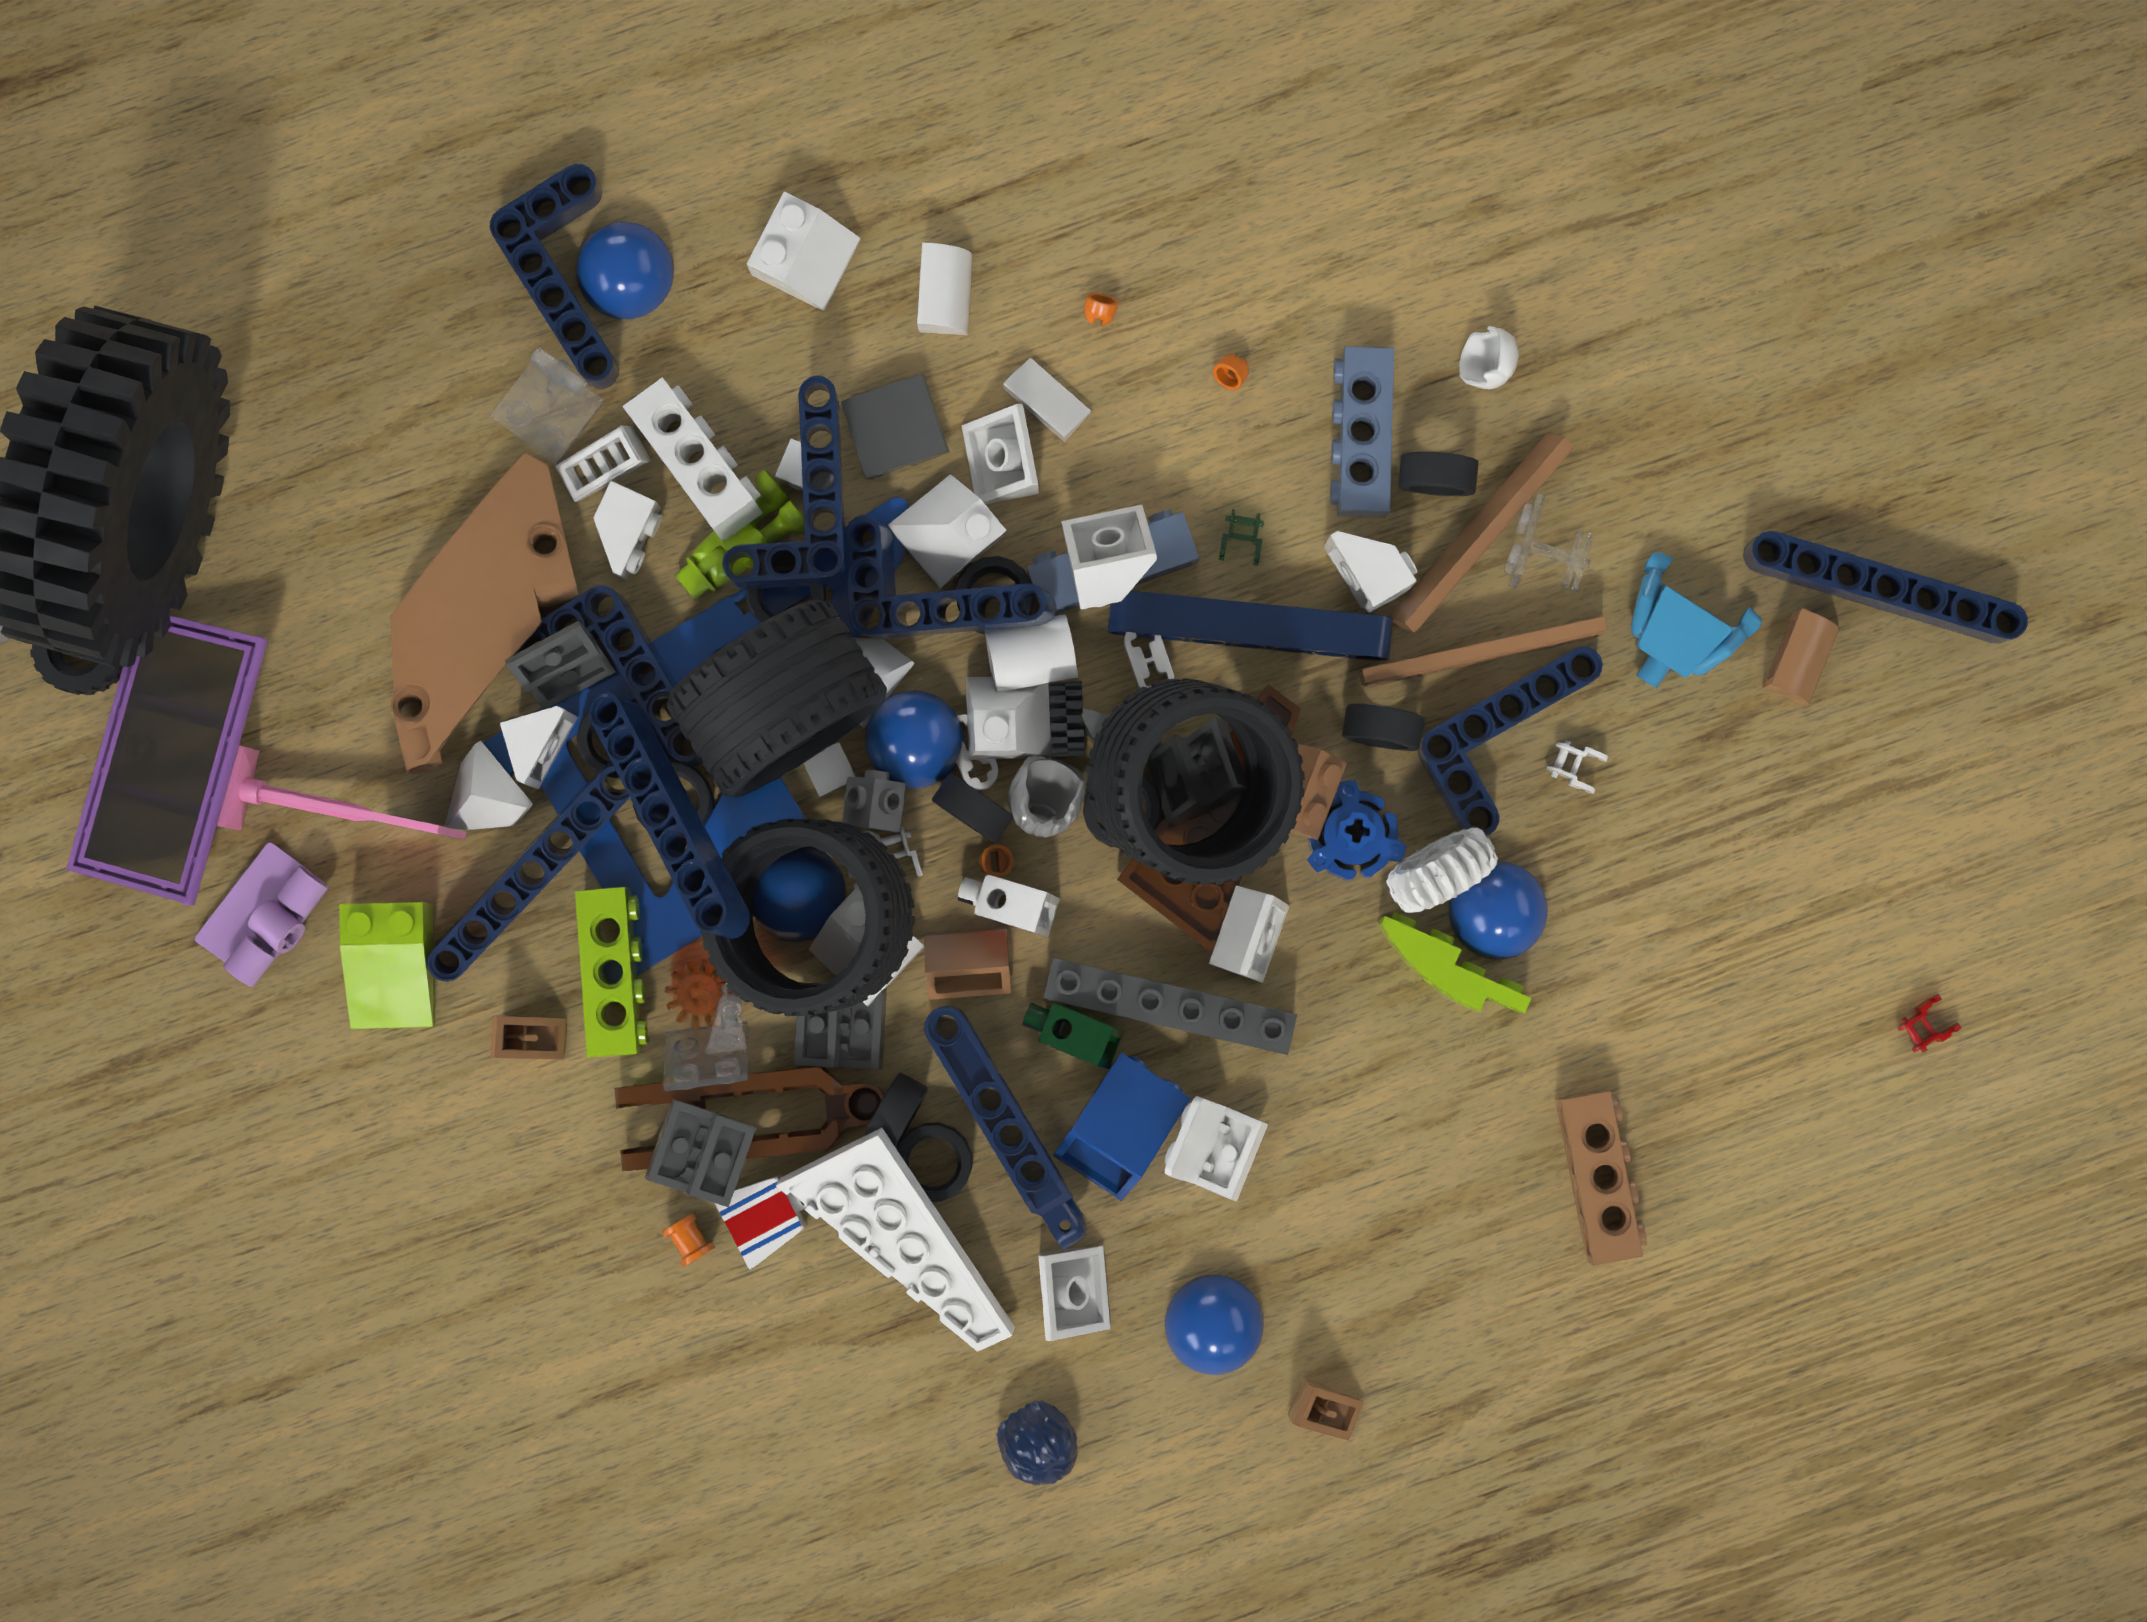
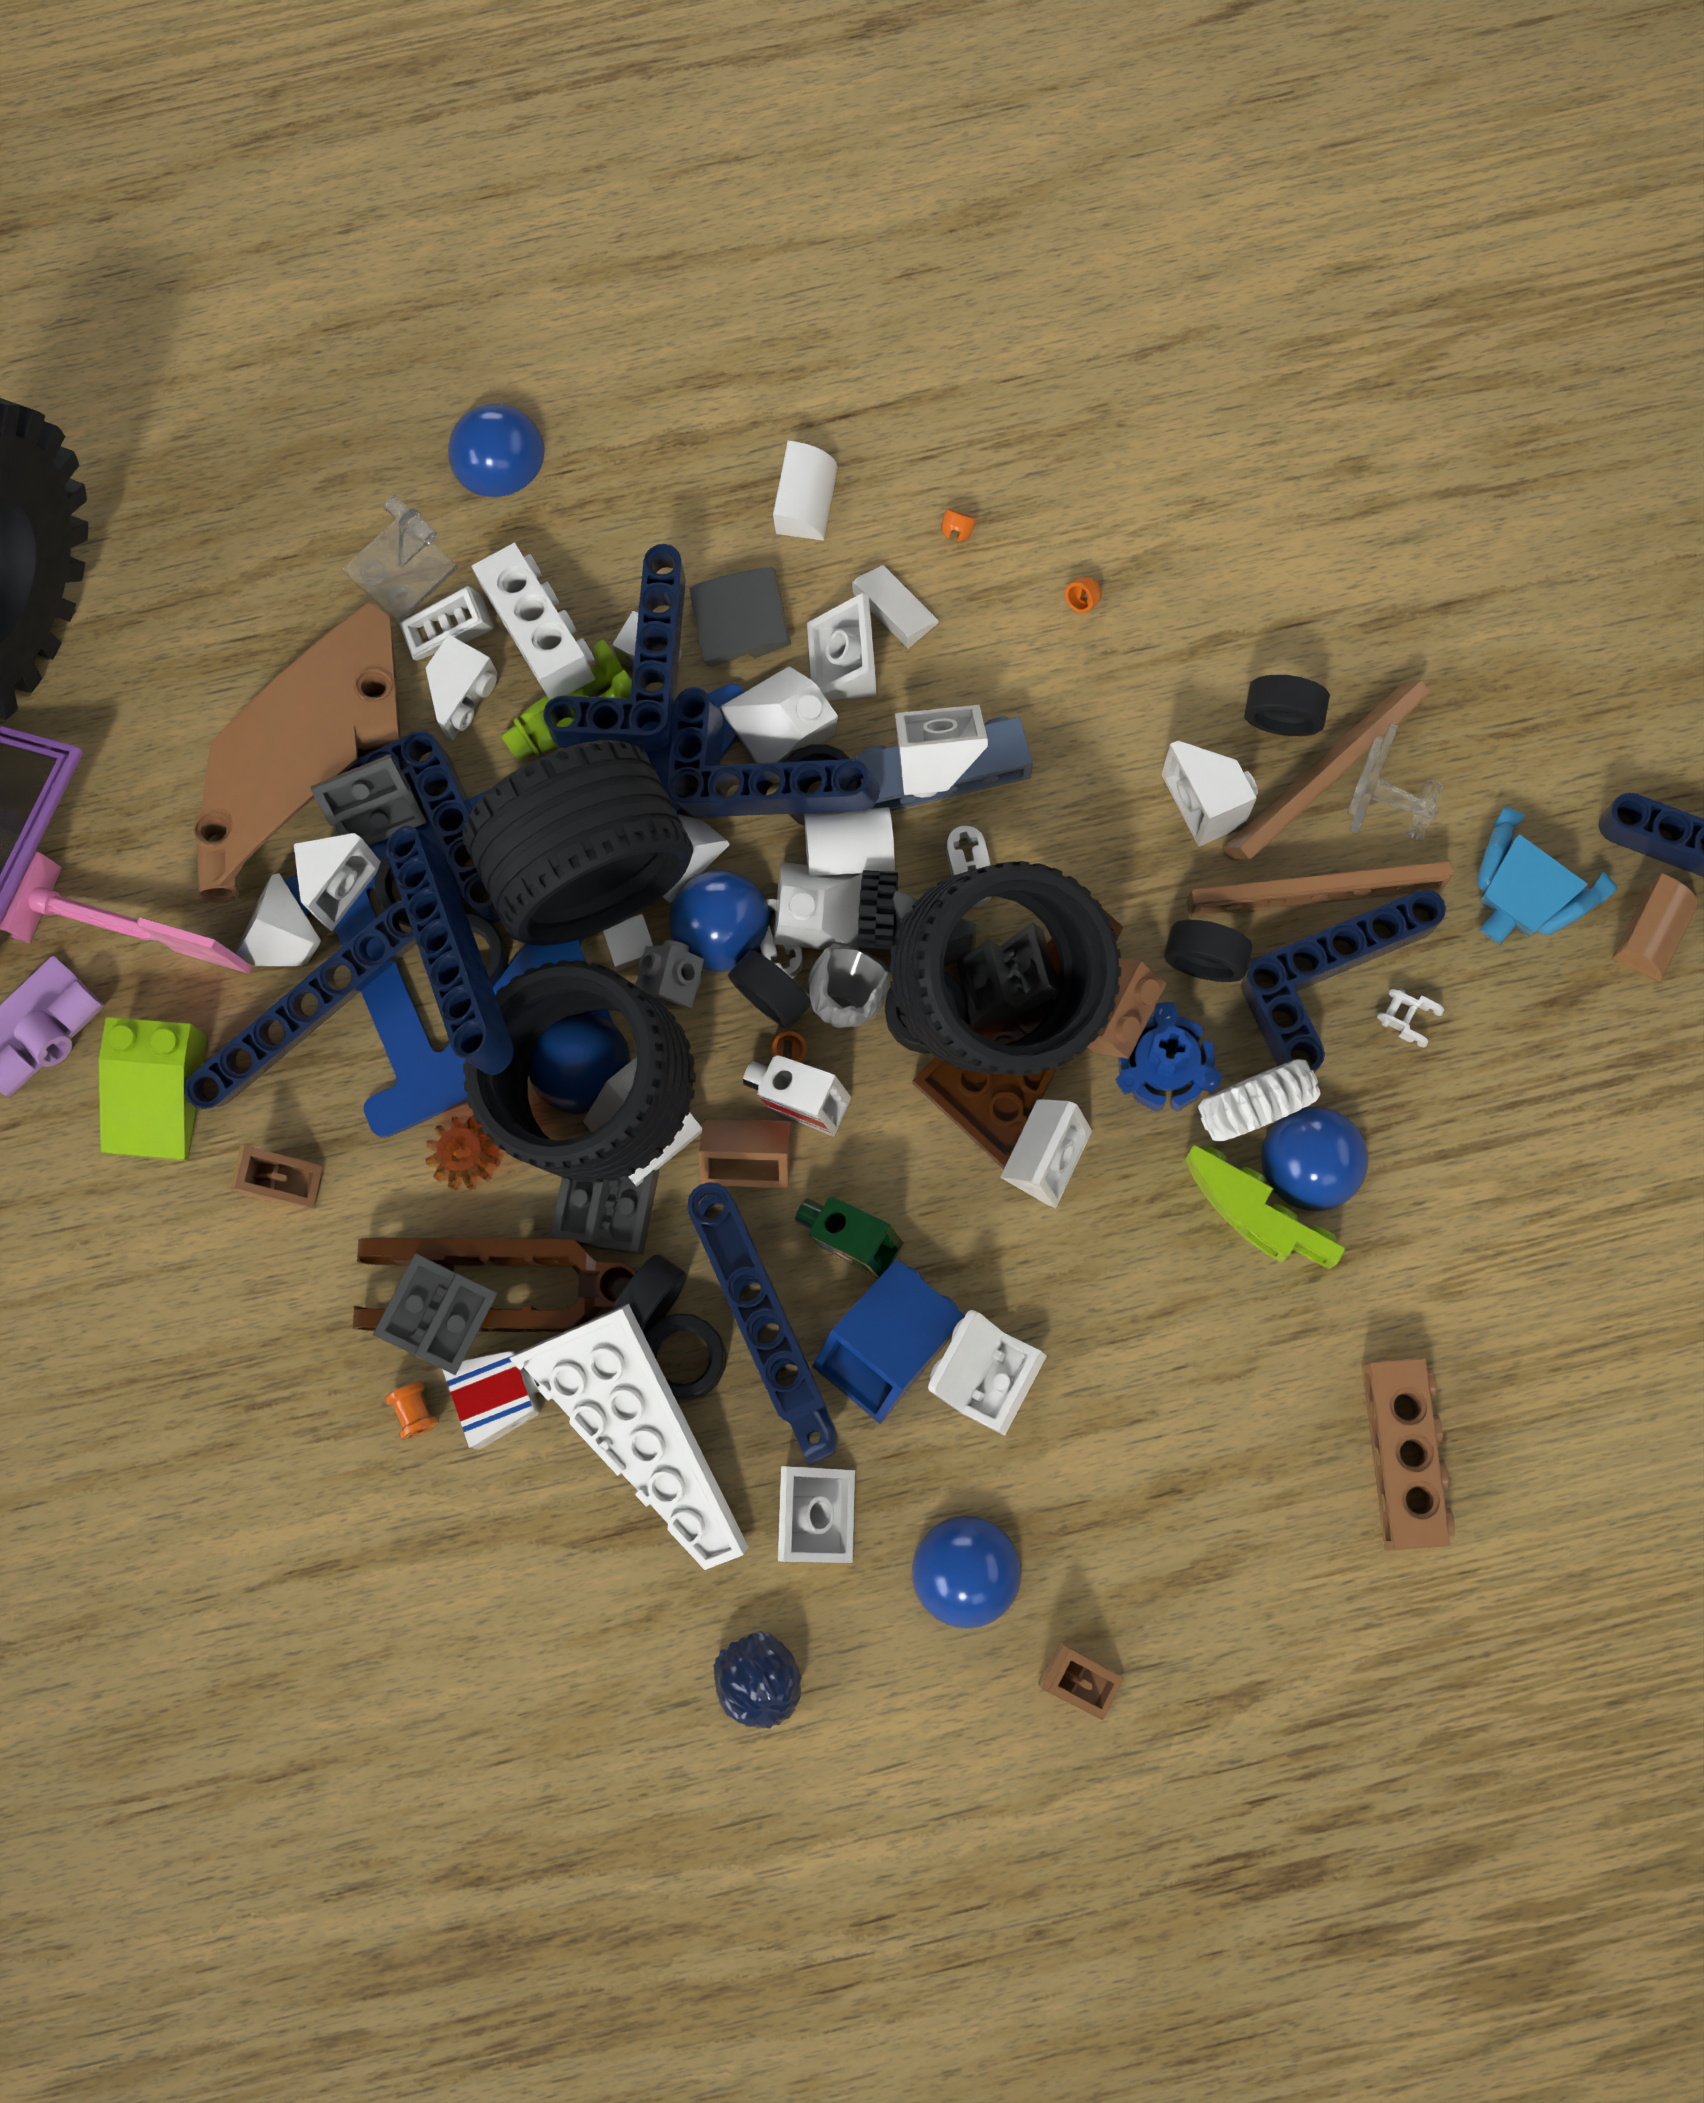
camera: 15 degrees right, 10 degrees down
(548, 277) = (415, 449): dark blue beam -> none
(592, 910) = (364, 1054): lime brick -> none
(709, 1054) = (465, 1213): clear plate -> none
(803, 251) = (669, 444): white slope -> none
(902, 836) = (701, 1034): white piece -> none
(1170, 1006) = (955, 1217): dark grey brick -> none
(1247, 521) = (1083, 739): clear green piece -> none
(1252, 625) = (1080, 838): dark blue beam -> none
(1376, 369) = (1228, 602): sand blue brick -> none
(1488, 358) = (1348, 603): white hair -> none

